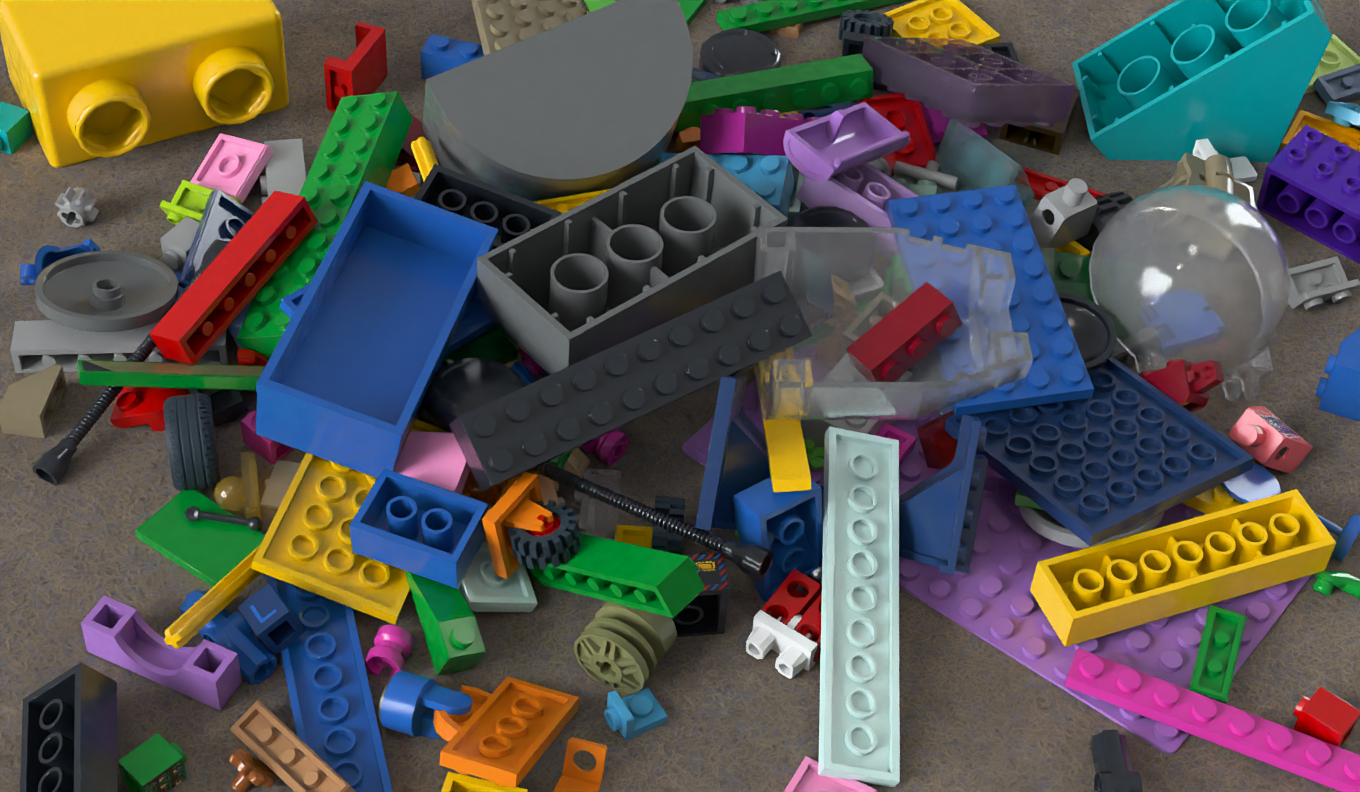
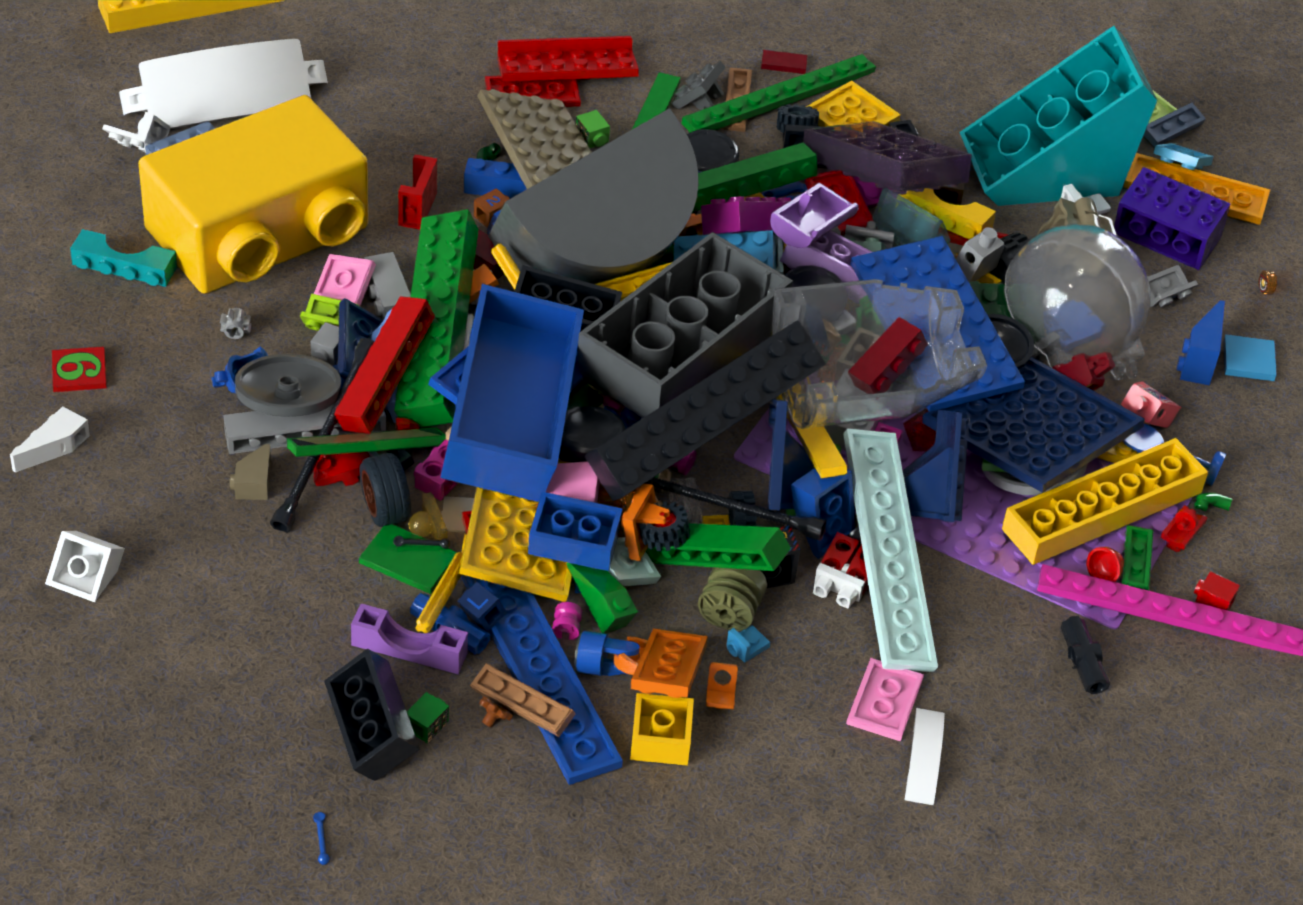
camera: 10 degrees left, 0 degrees up
(466, 32) = (489, 152): none -> dark green arm
(1041, 166) = (960, 219): none -> yellow arch
(1168, 658) = (1105, 564): none -> red piece
(1290, 618) = (1183, 528): none -> red hips

